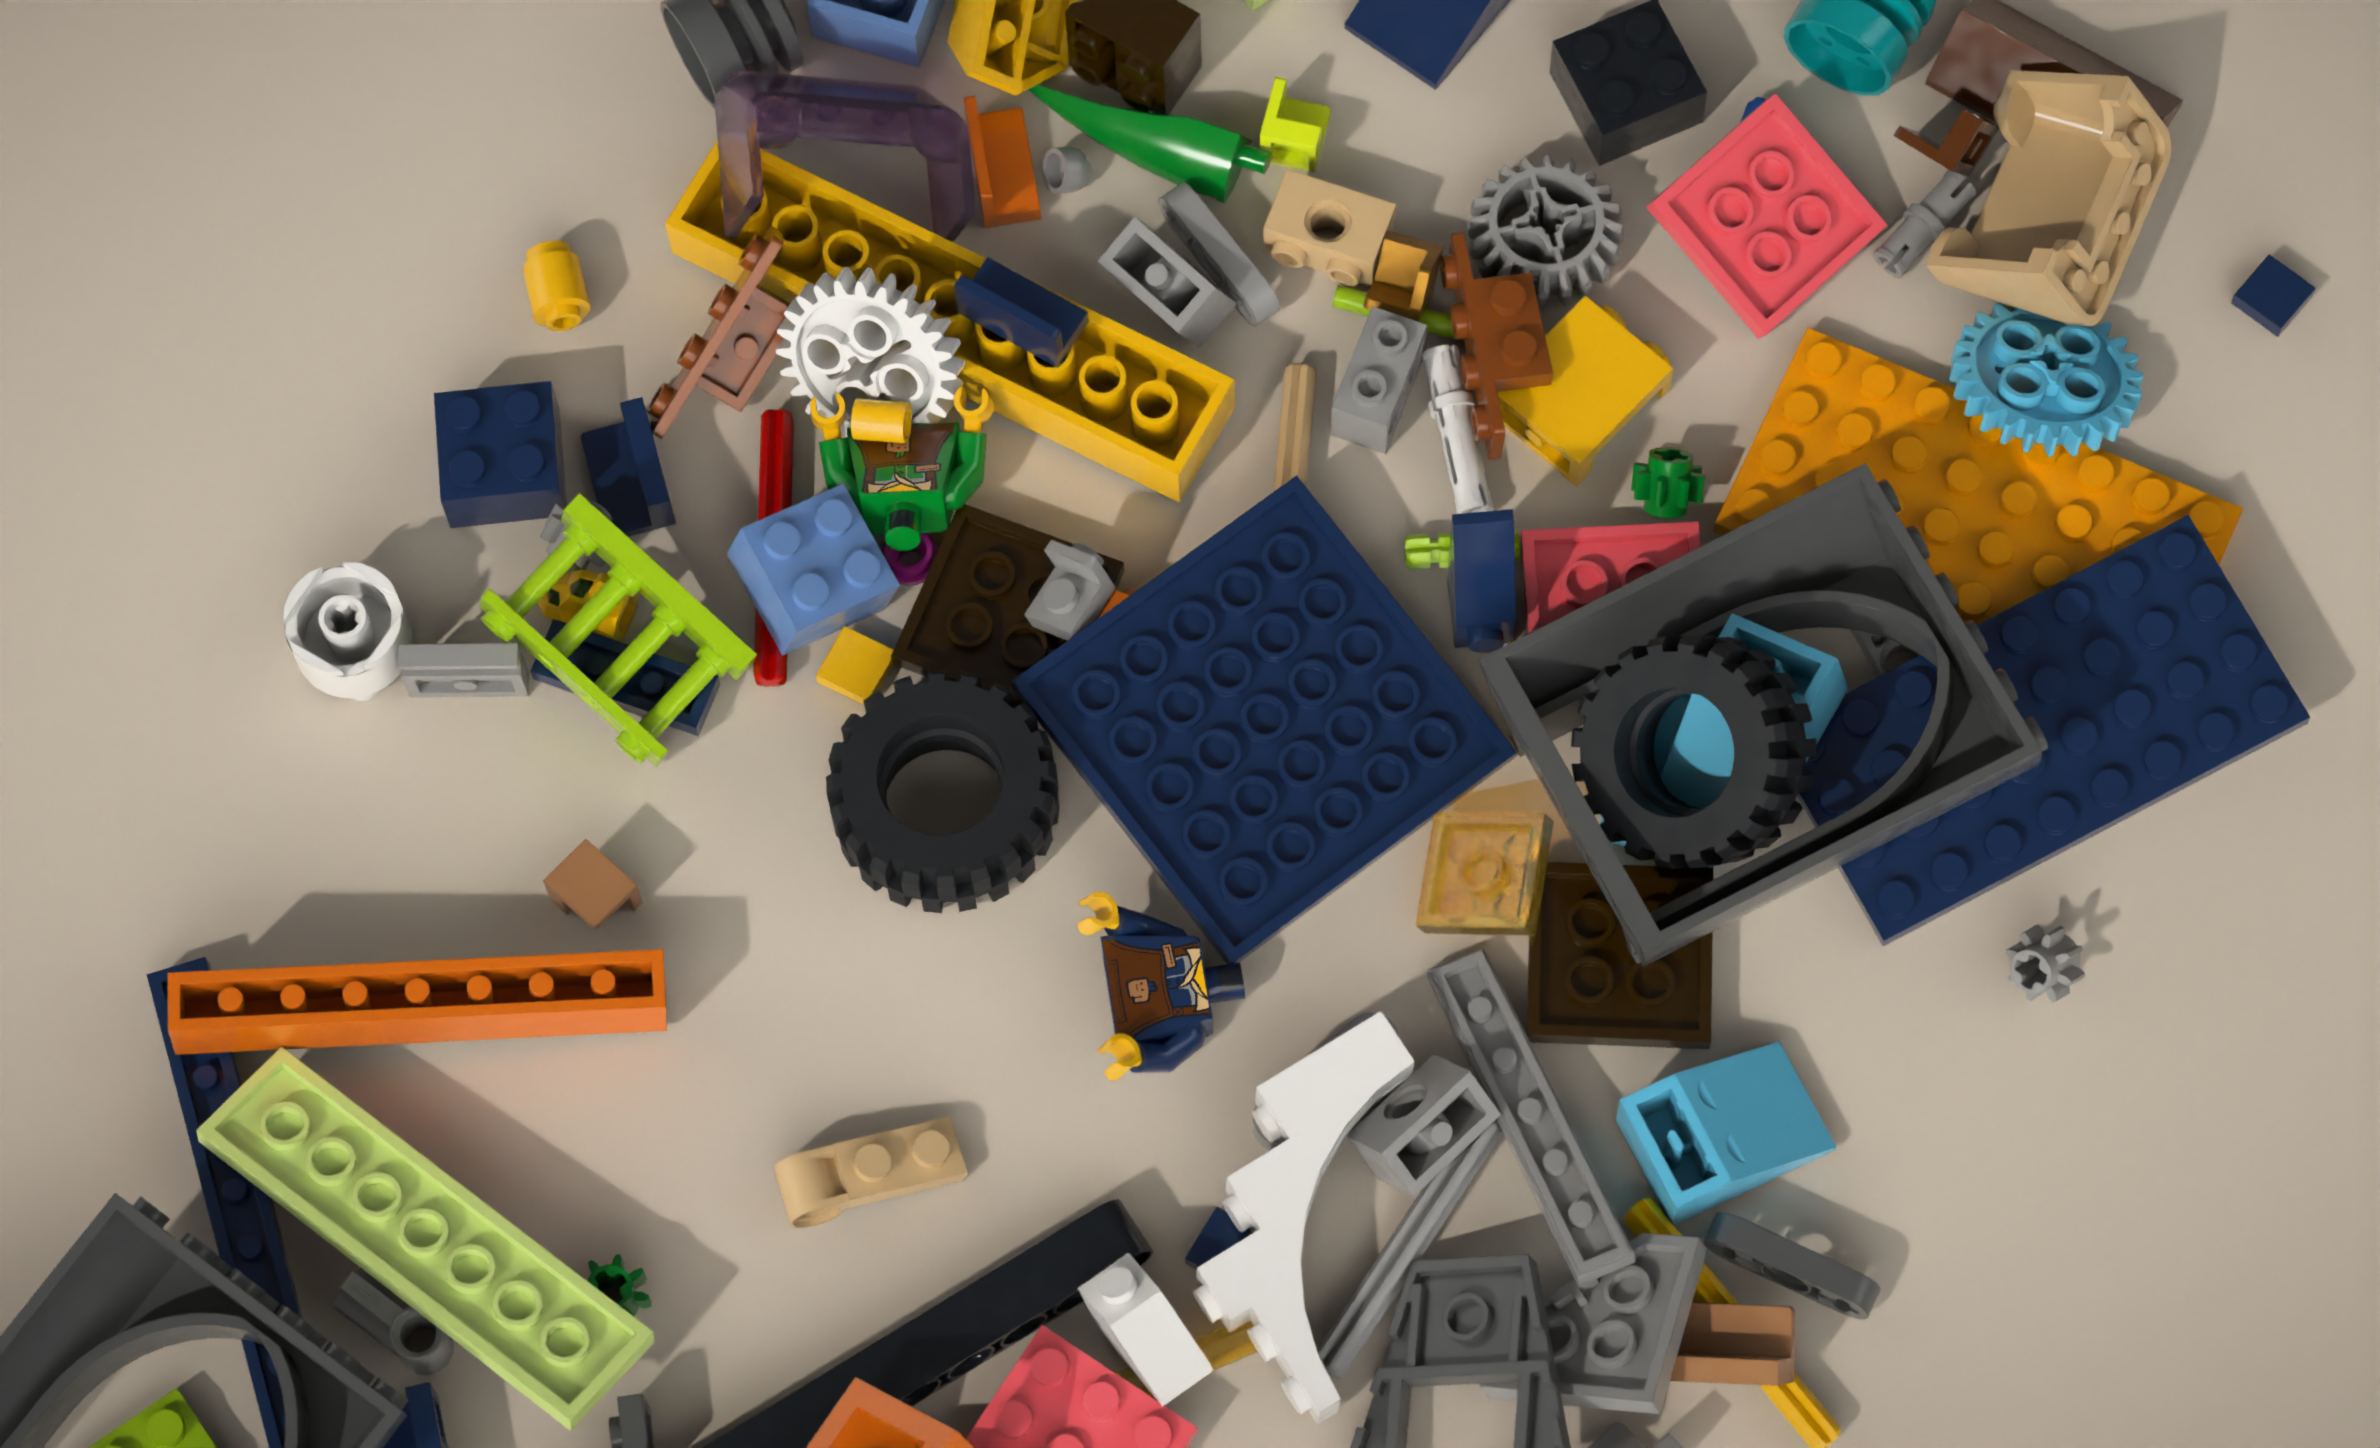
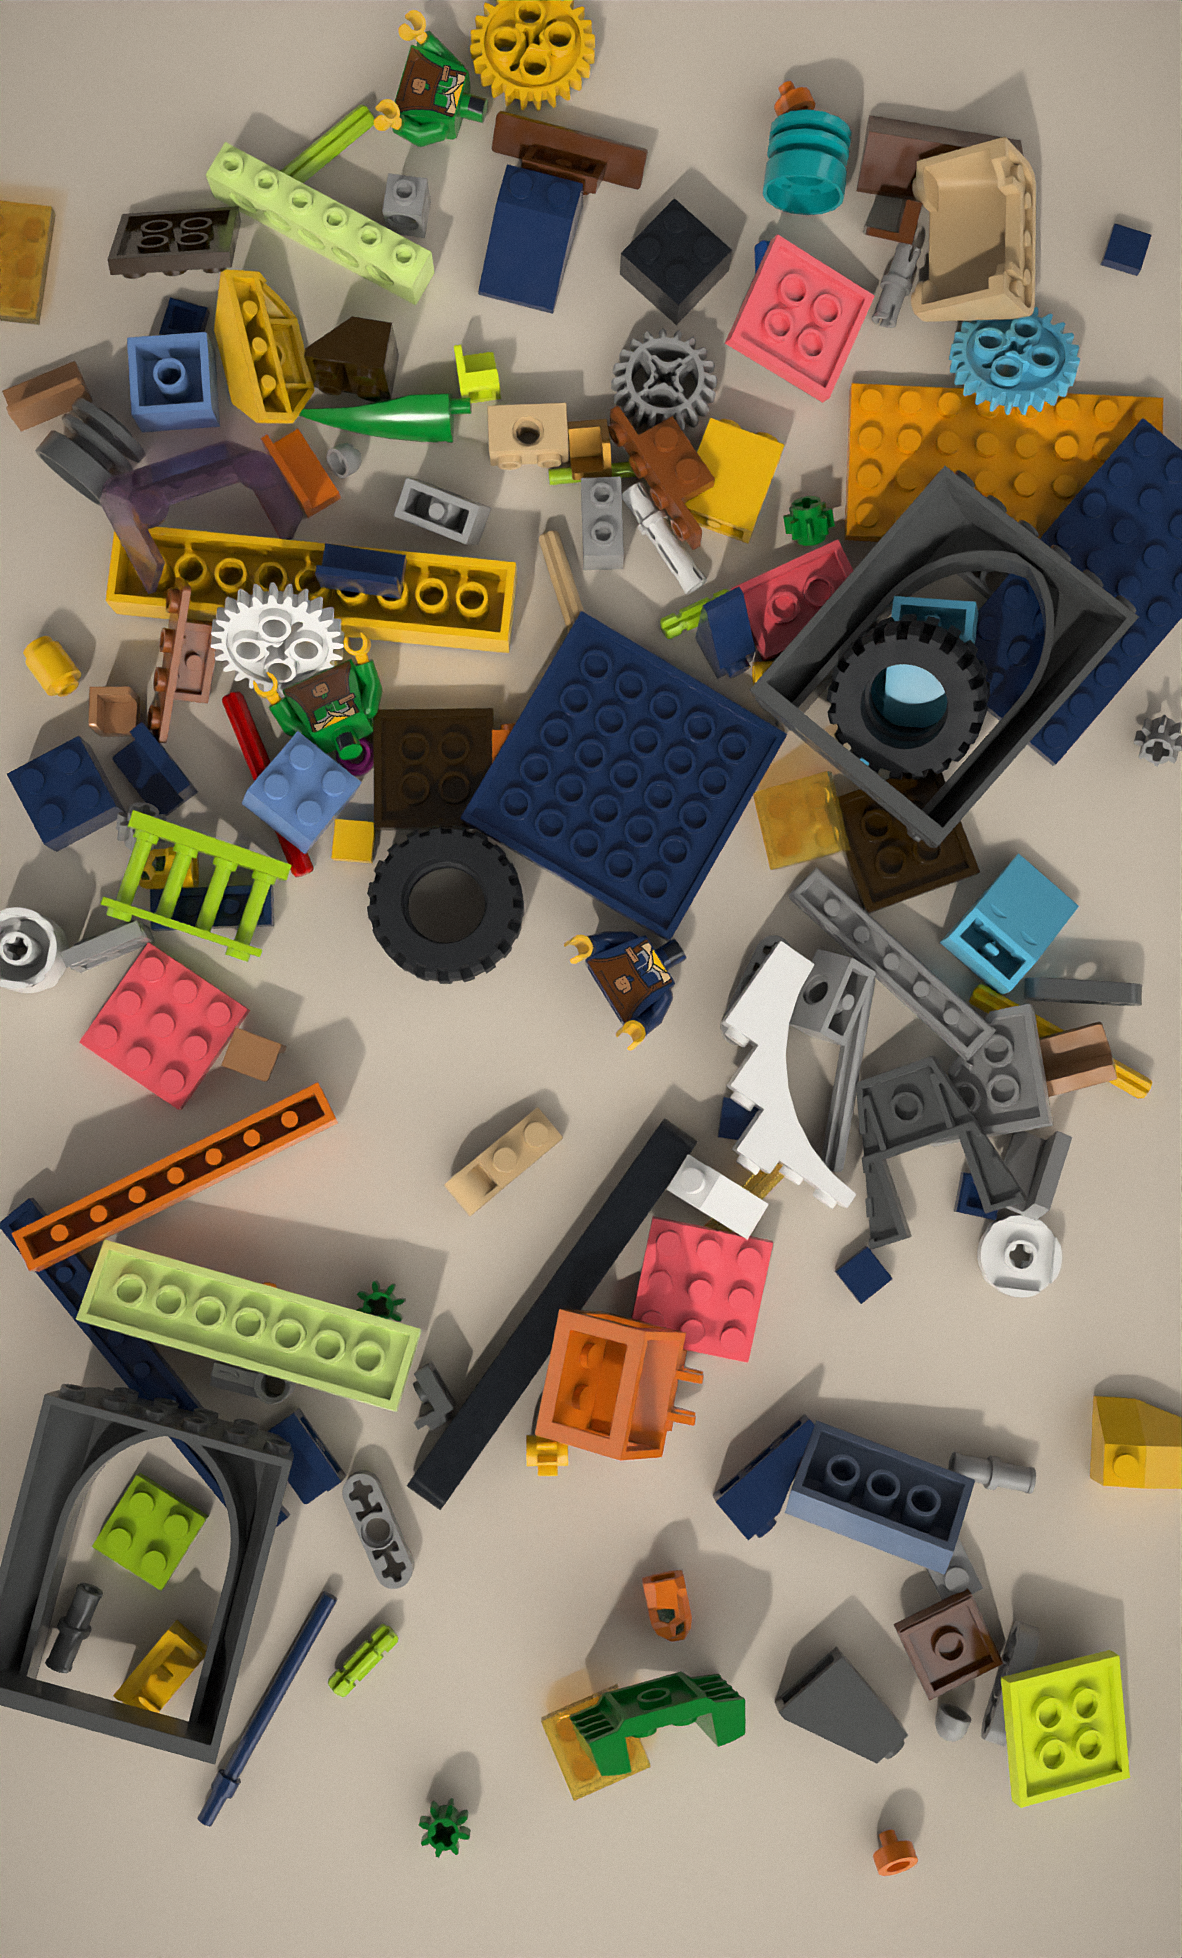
camera: 30 degrees left, 15 degrees up
(489, 808) = (164, 1026): none -> coral plate
(610, 371) = (113, 711): none -> medium nougat panel
(881, 420) = (303, 678): yellow hinge -> none
(1072, 592) = (471, 743): light grey bracket -> none
(1218, 254) = (465, 478): light grey beam -> none

